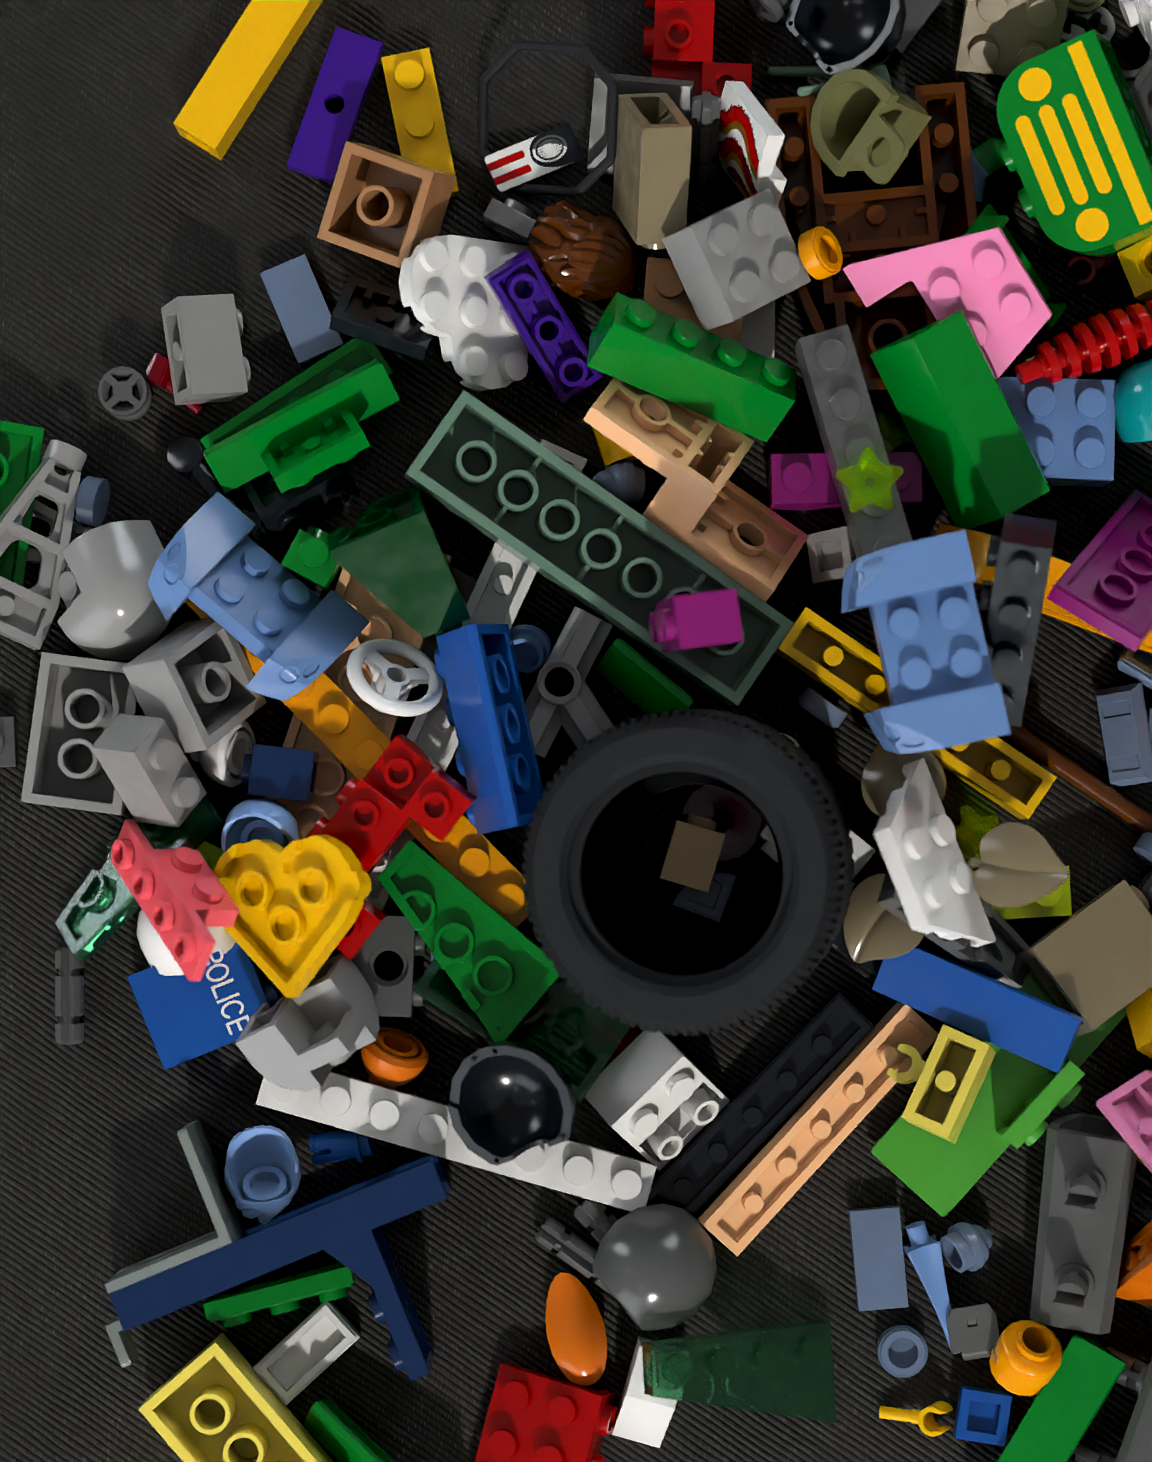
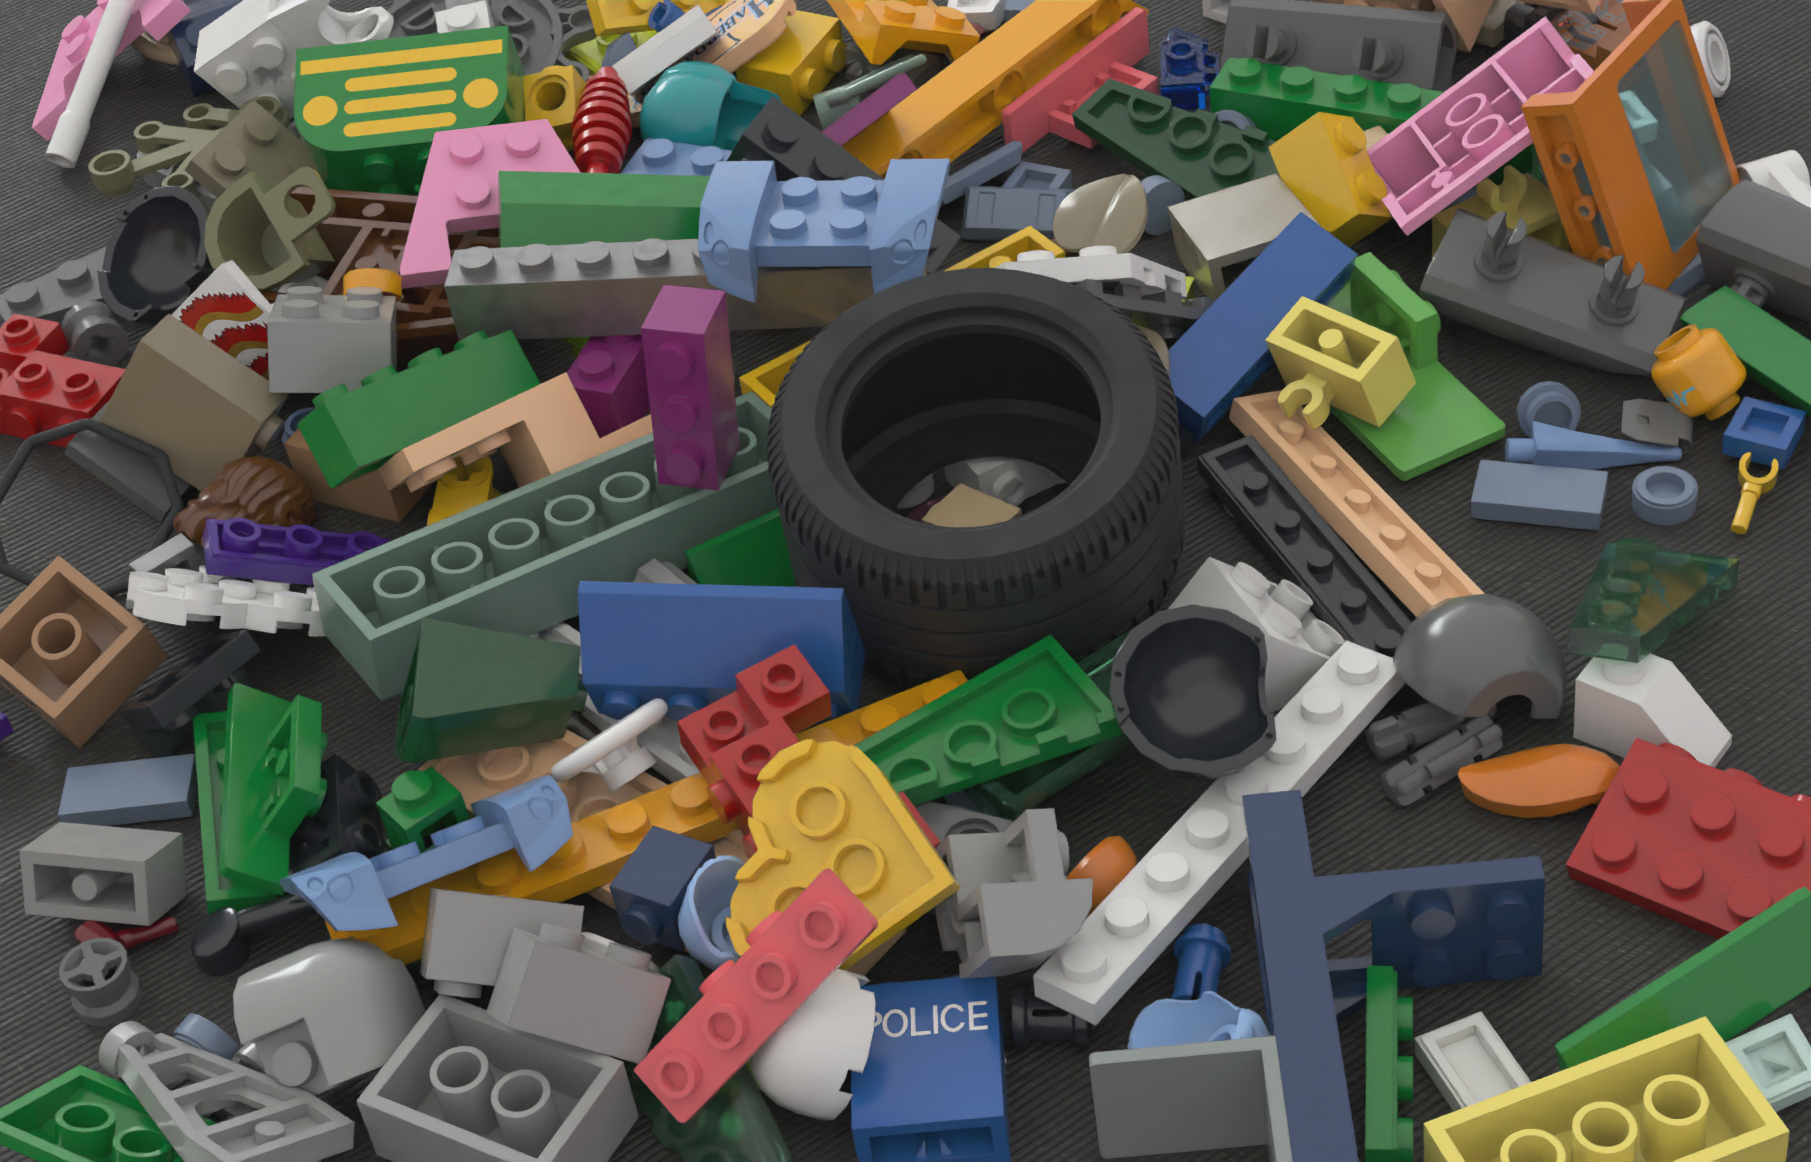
camera: 65 degrees left, 45 degrees down
(533, 157) = (115, 552): sticker -> none
(869, 467) = (625, 243): clear neon green plate -> none

